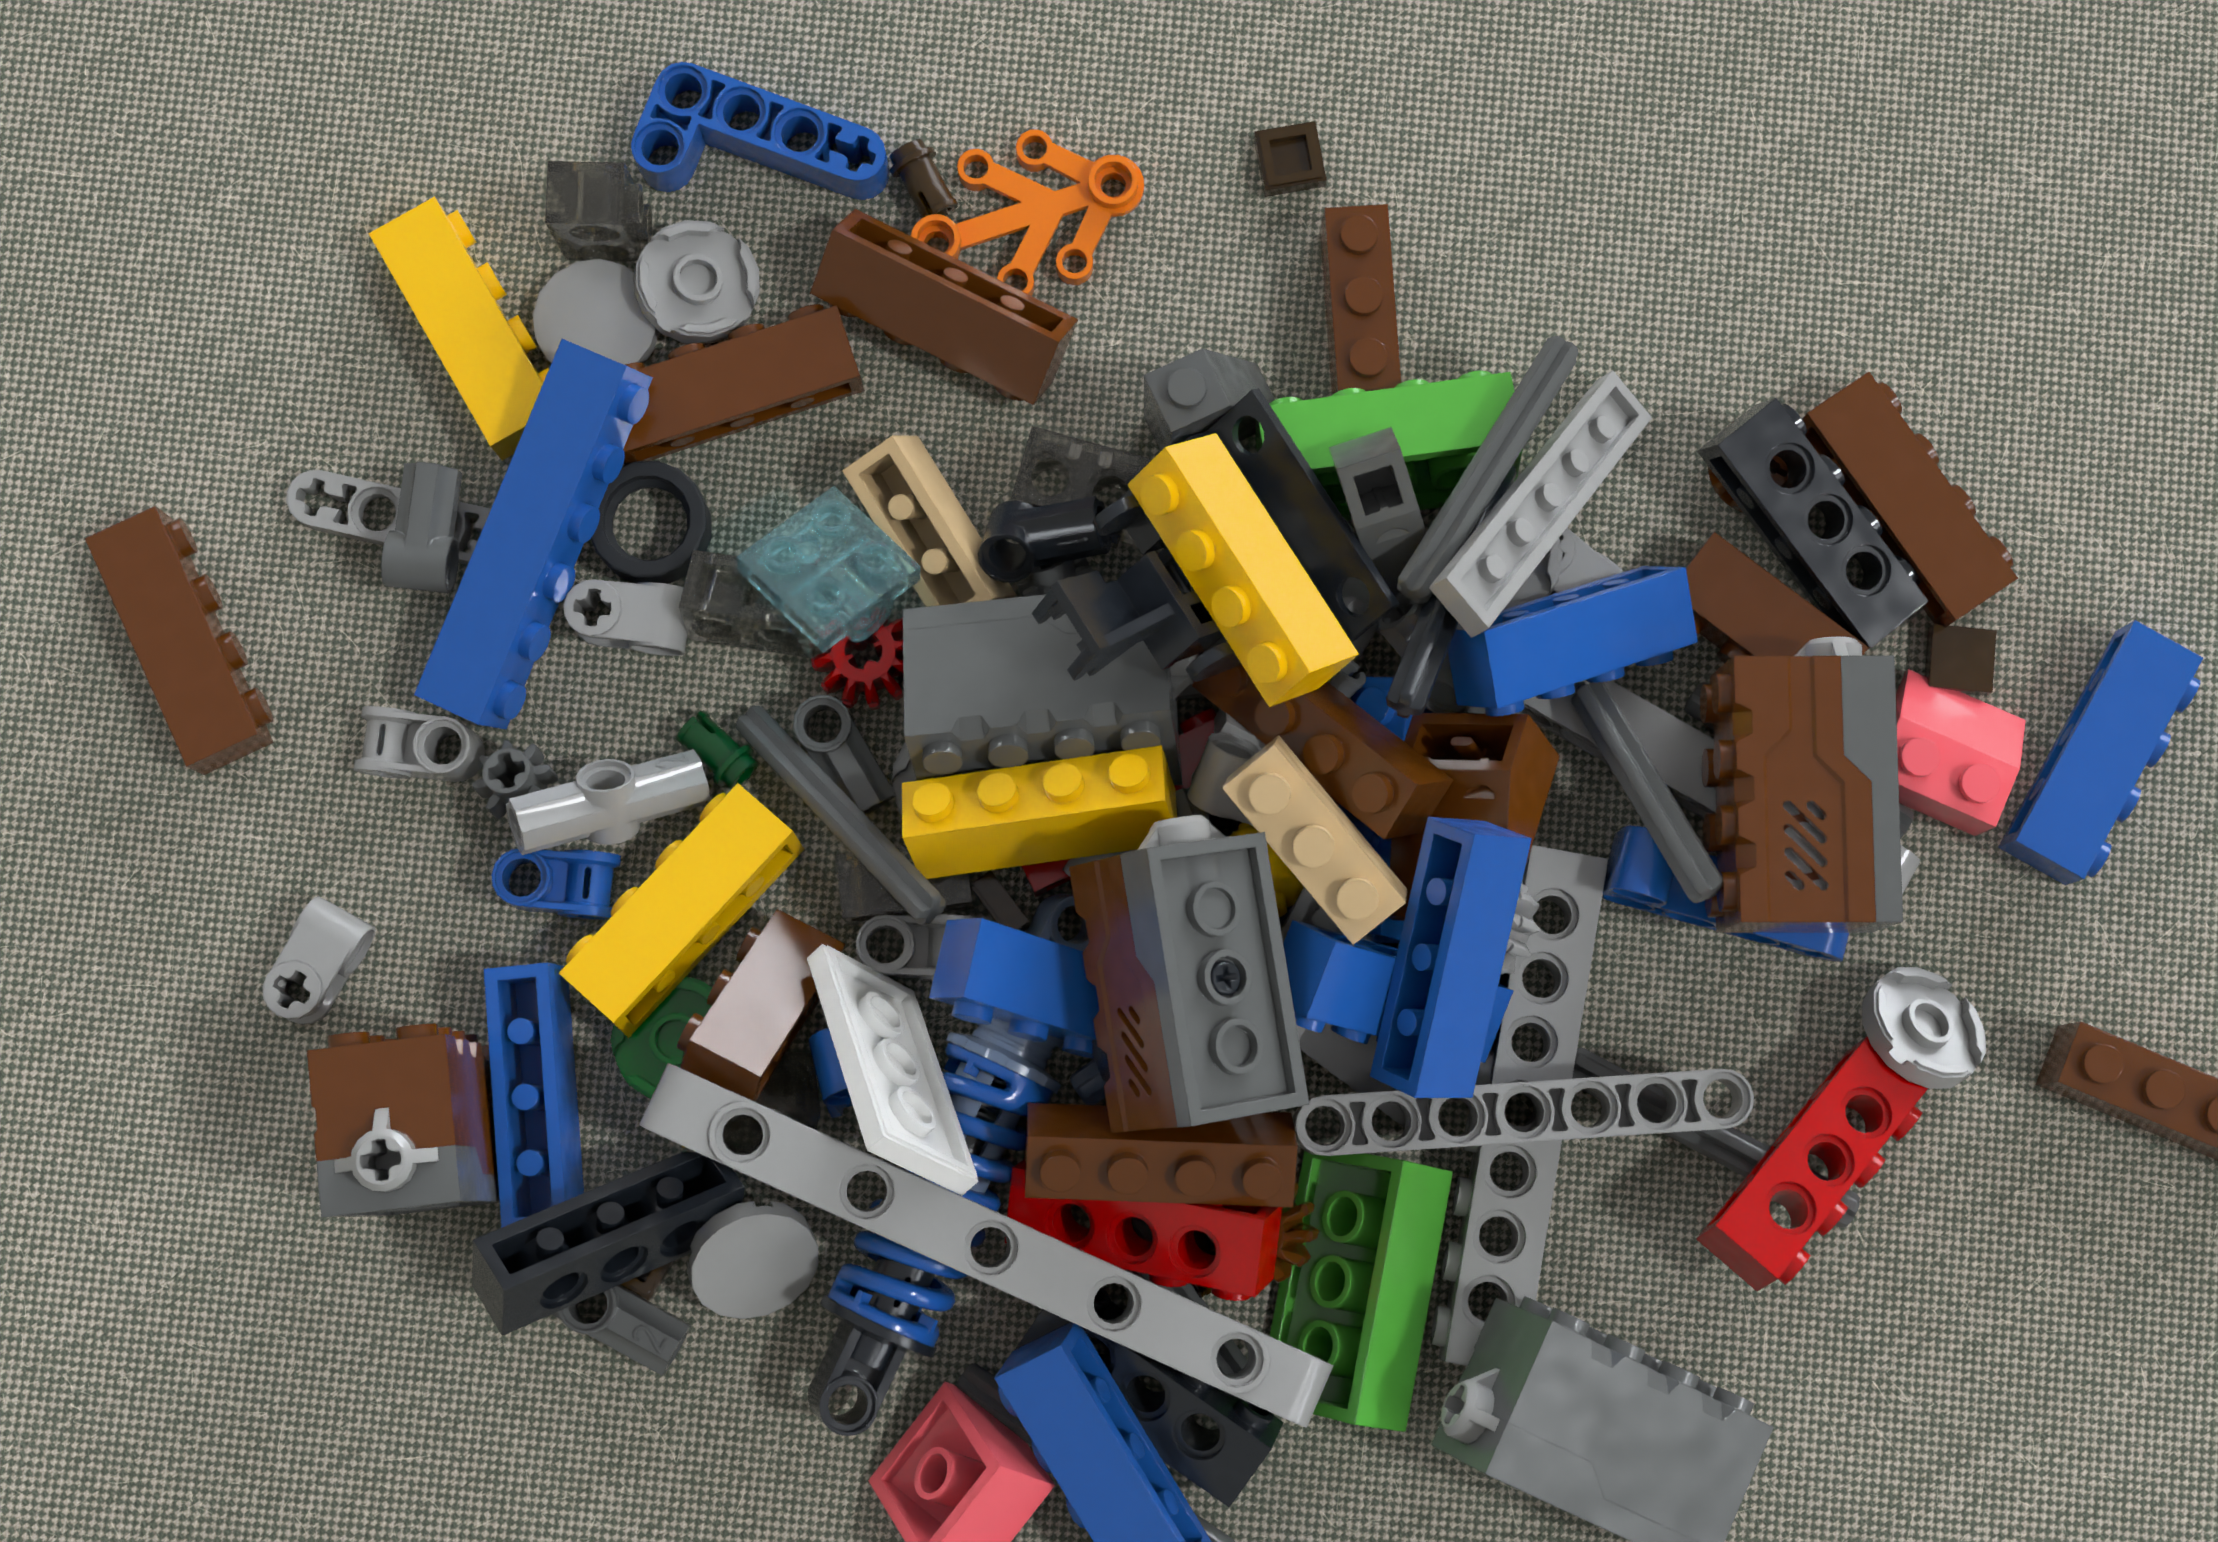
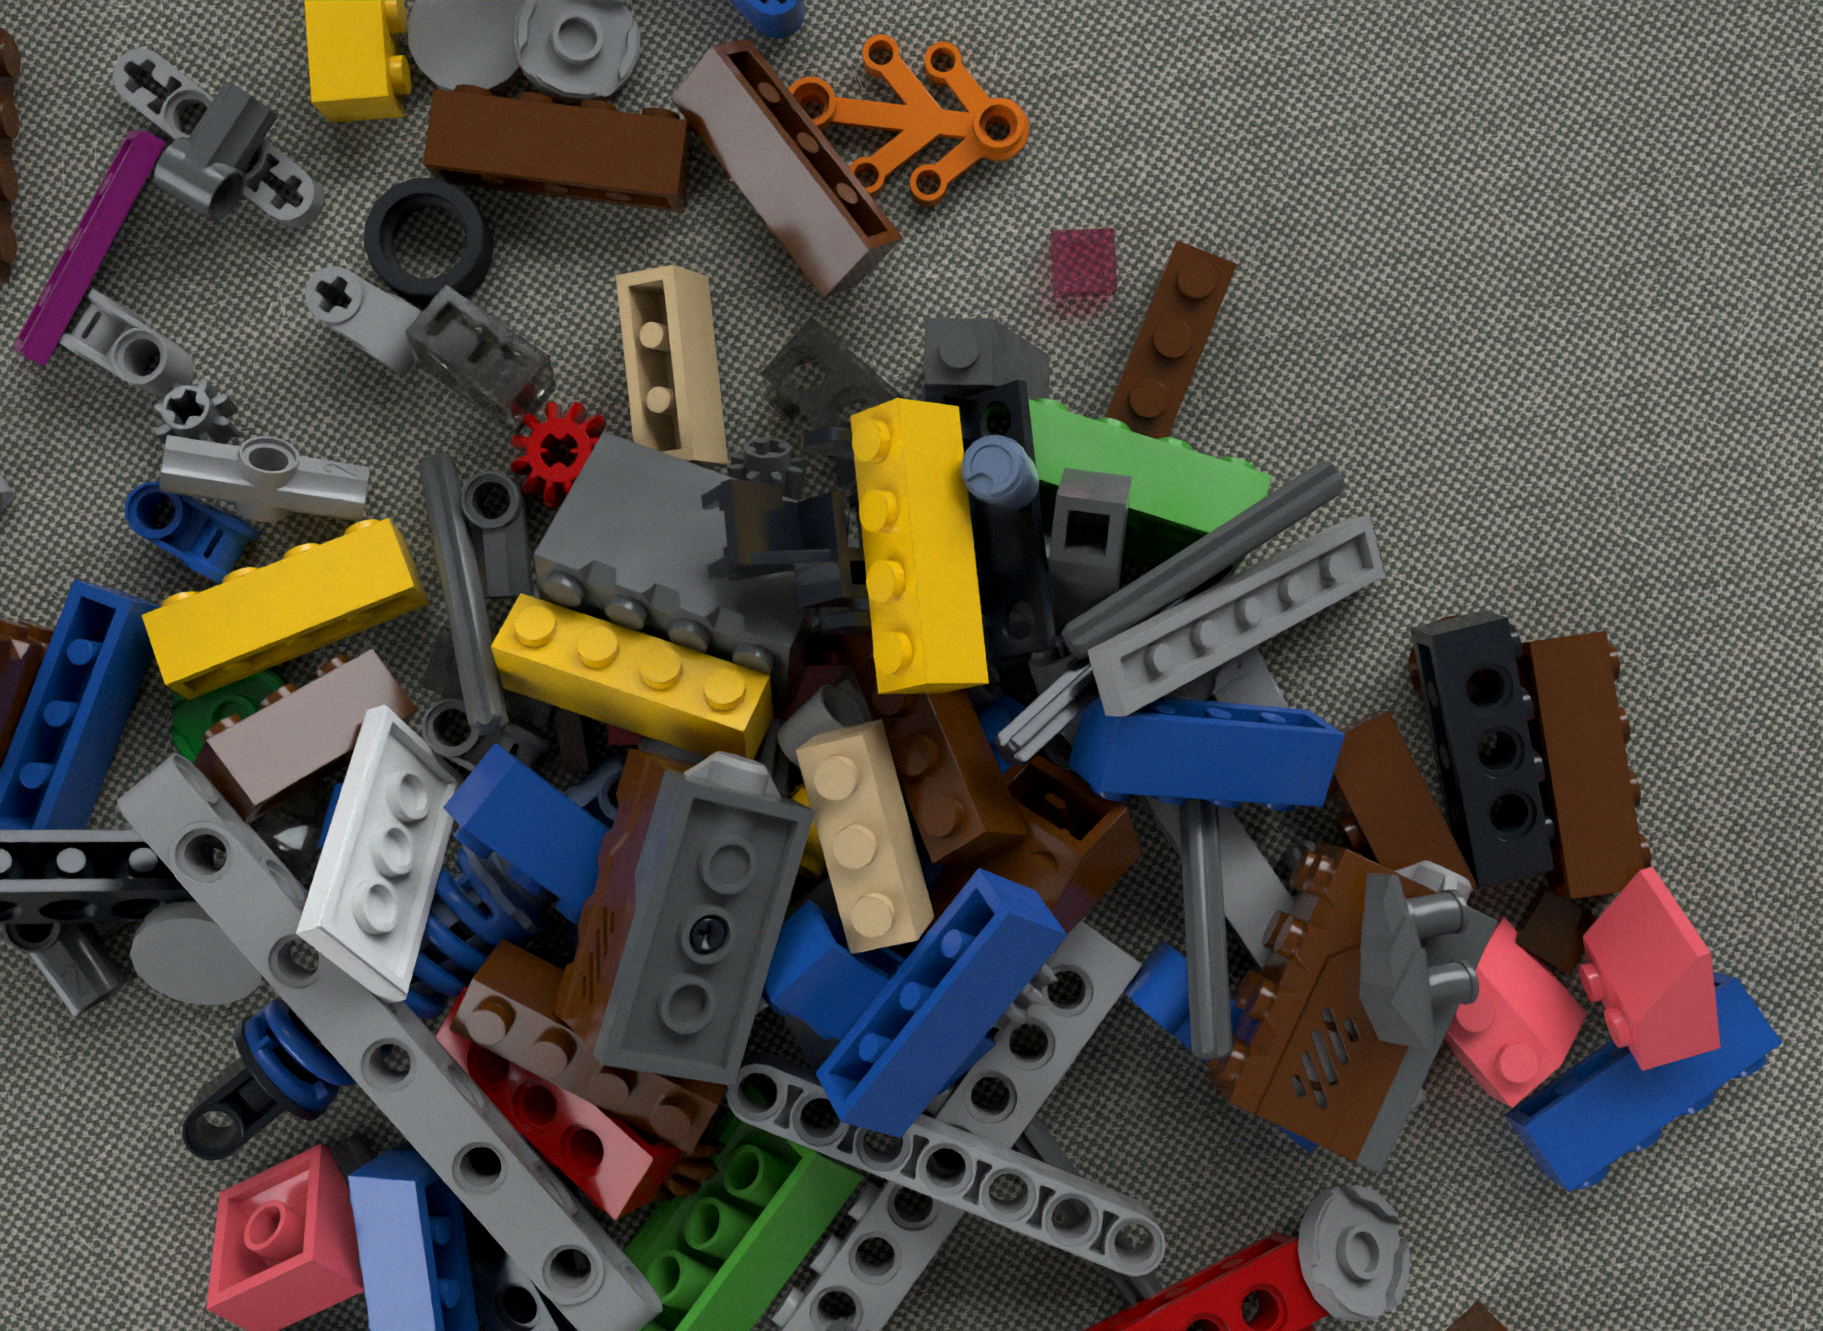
camera: 25 degrees right, 5 degrees up
(340, 672) = (88, 246): none -> magenta tile
(534, 536) = (310, 202): blue brick -> none
(718, 750) = (392, 479): dark green pin -> none
(830, 571) = (556, 364): clear light blue plate -> none
(922, 179) = (826, 40): dark brown pin -> none
(1044, 537) = (758, 418): black piece -> none
(1247, 267) = (1083, 262): none -> clear pink tile
(1280, 472) = (1000, 473): none -> sand blue piece
(1289, 159) = (1171, 180): dark brown tile -> none
(1828, 740) = (1394, 971): none -> dark grey connector
(2057, 650) = (1651, 975): none -> coral slope

